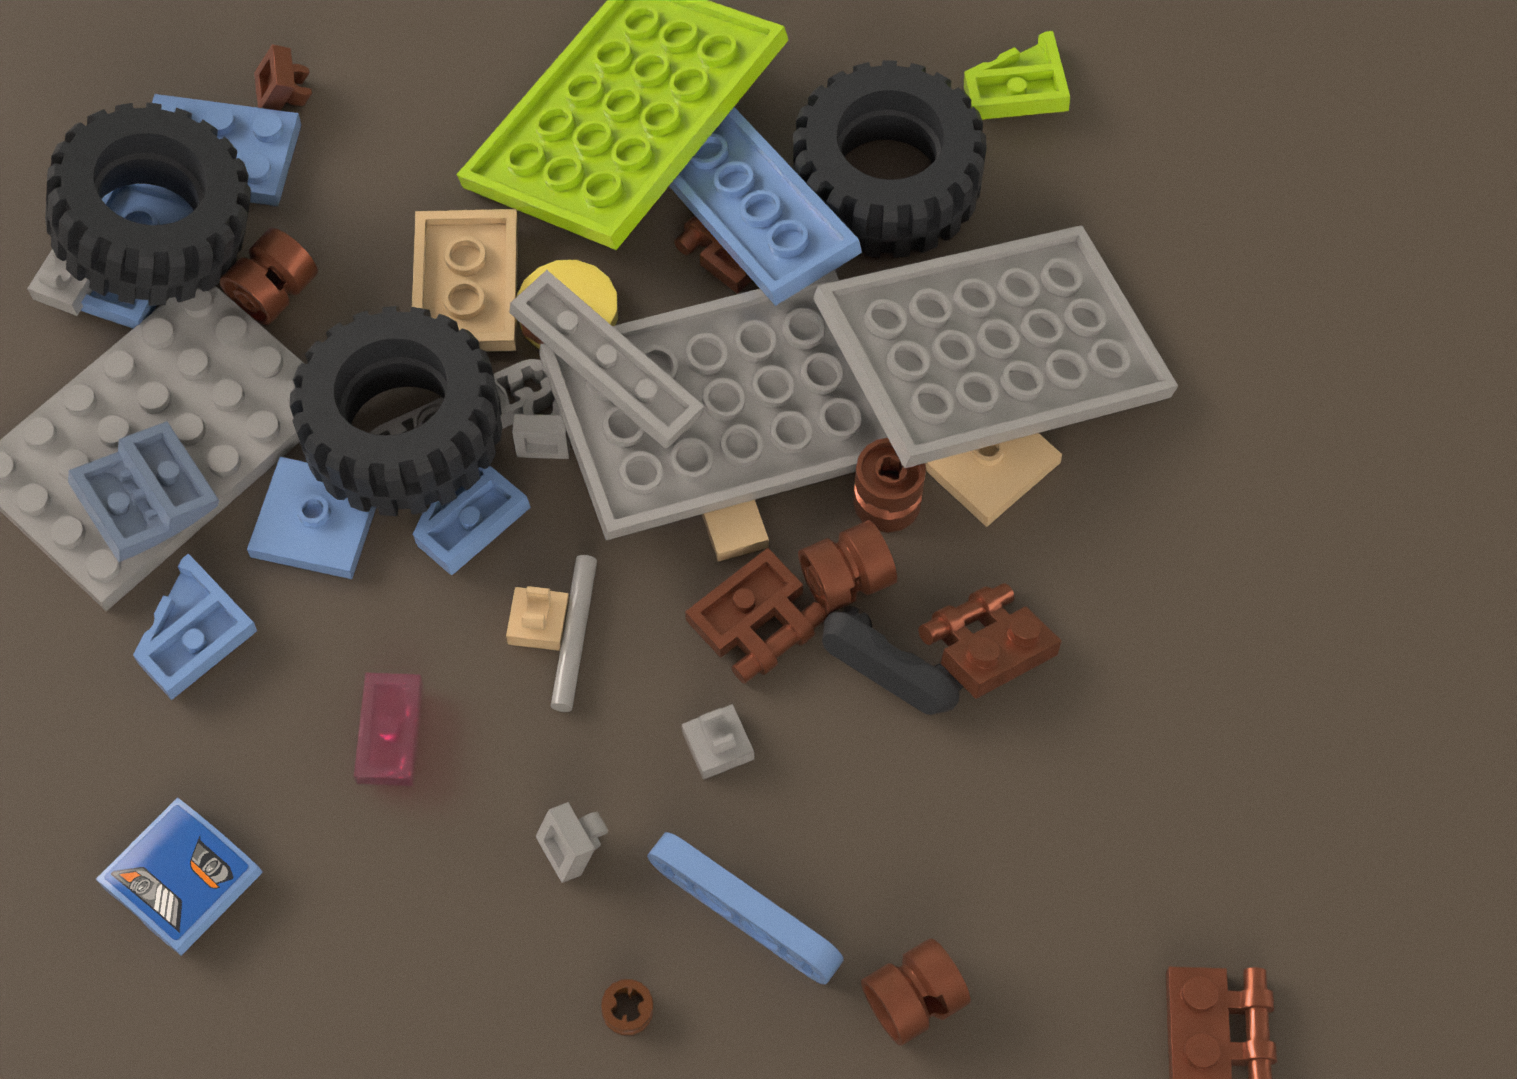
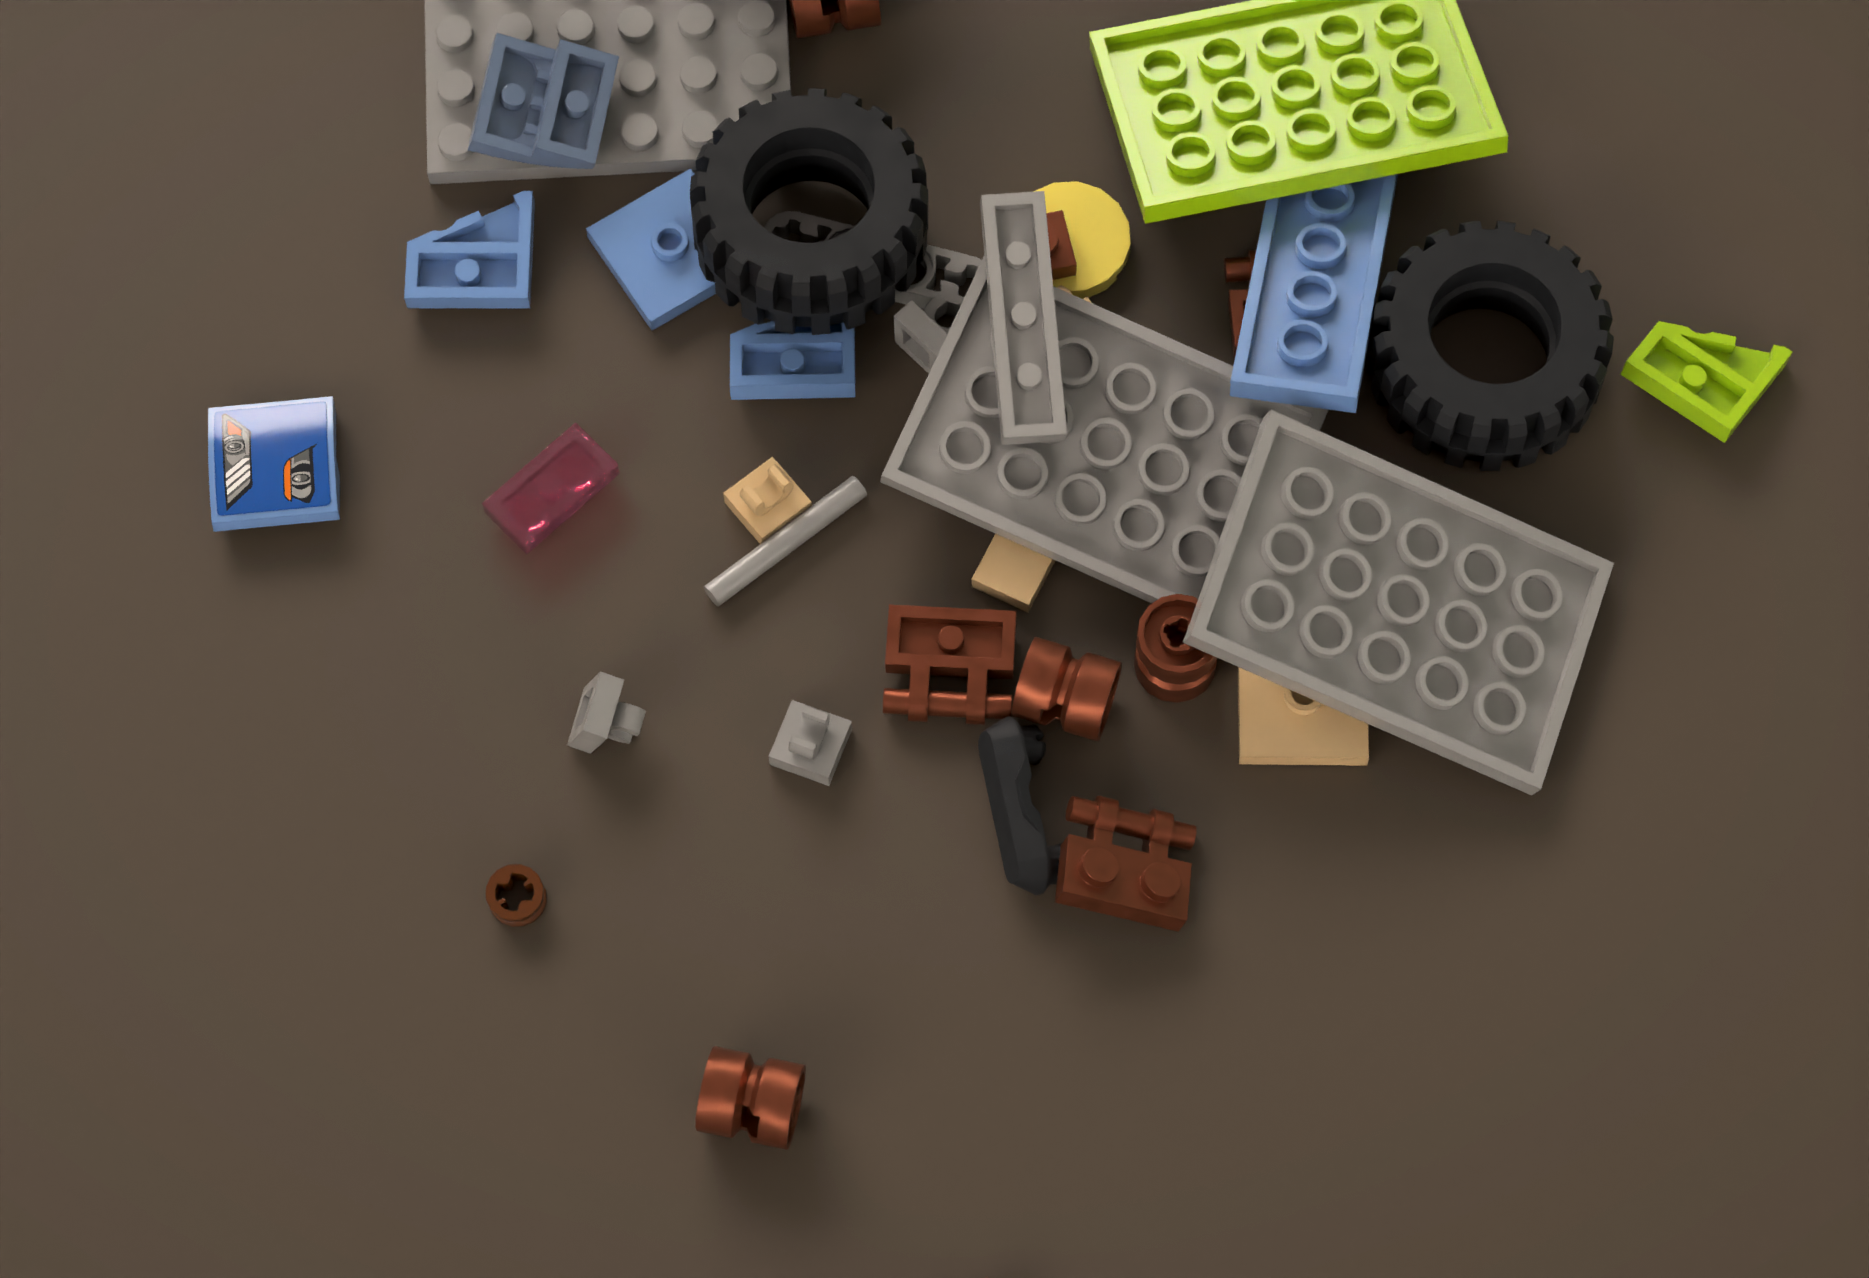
camera: 45 degrees right, 5 degrees up
(469, 271) = (1006, 133): tan plate -> none
(745, 908) = (686, 902): medium blue beam -> none

